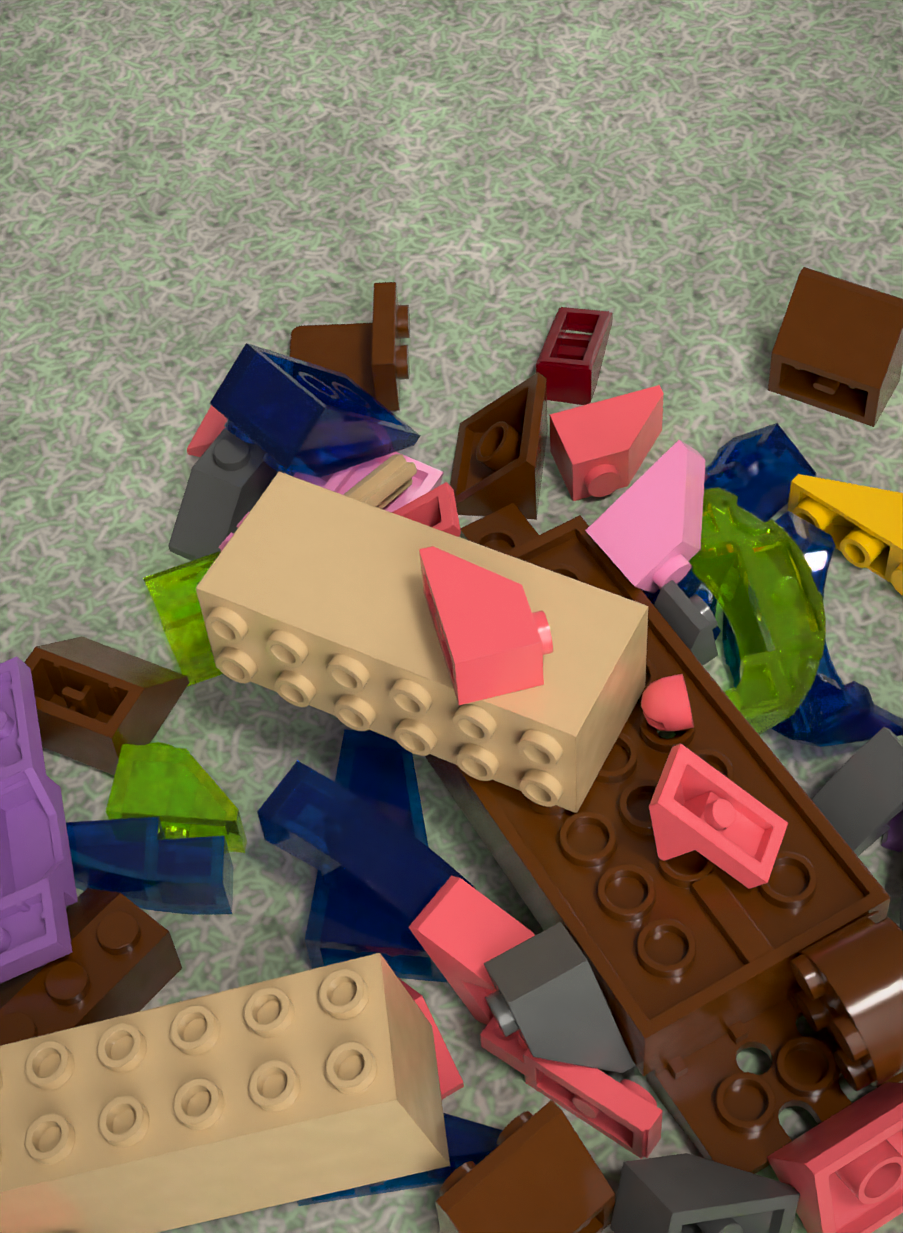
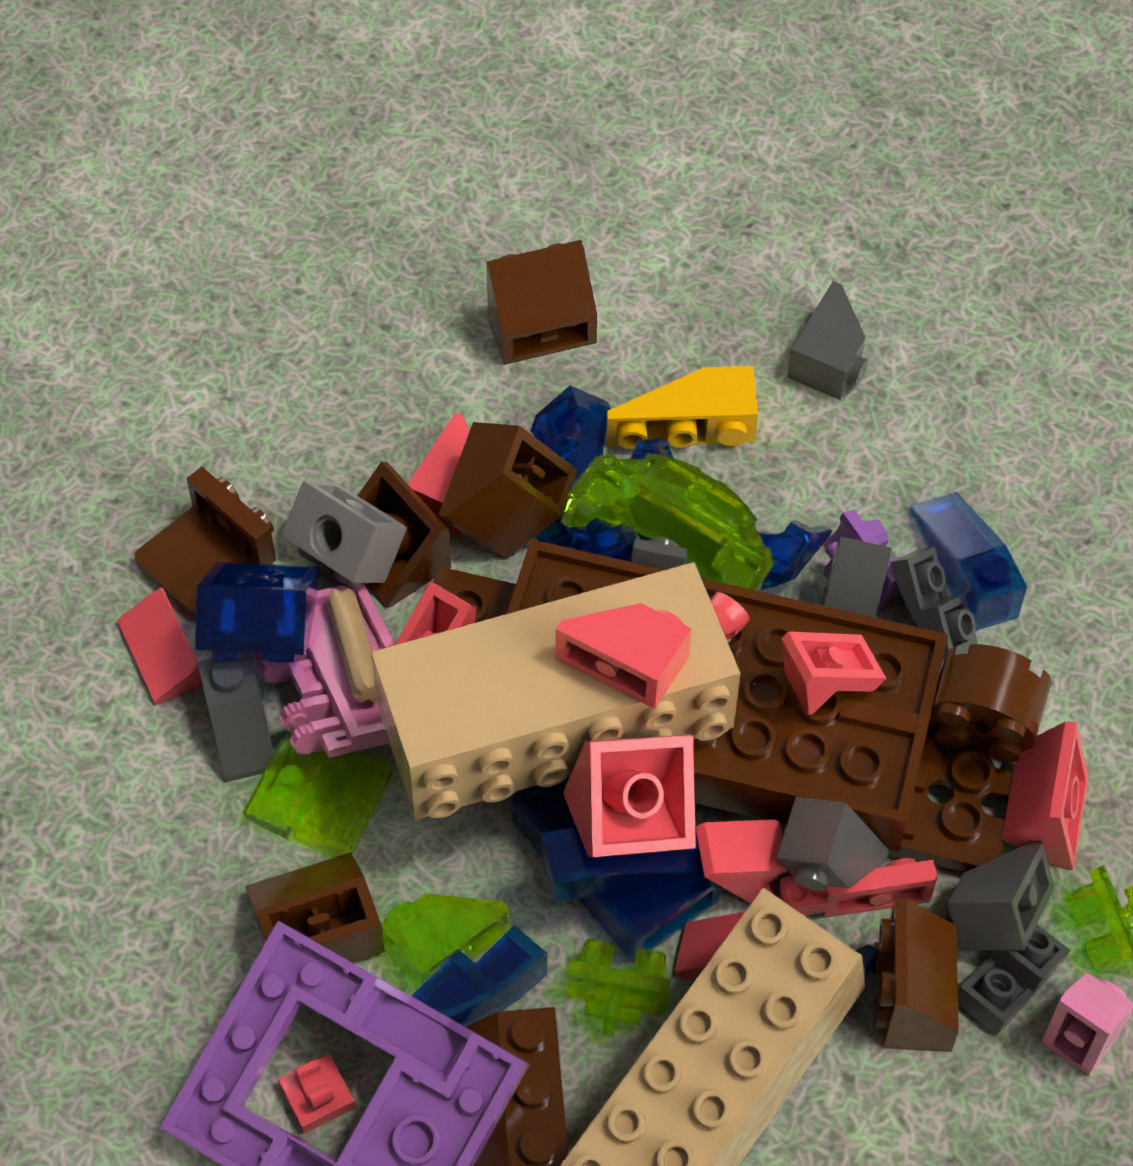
camera: 50 degrees left, 5 degrees up
(252, 946) = (618, 992): none -> clear neon green hips
(402, 792) = (634, 795): none -> coral slope
(459, 416) = (343, 533): none -> light grey brick
(574, 360) = (367, 452): dark red slope -> none
(606, 451) = (506, 487): none -> reddish brown slope
(656, 521) = (595, 508): bright pink slope -> none

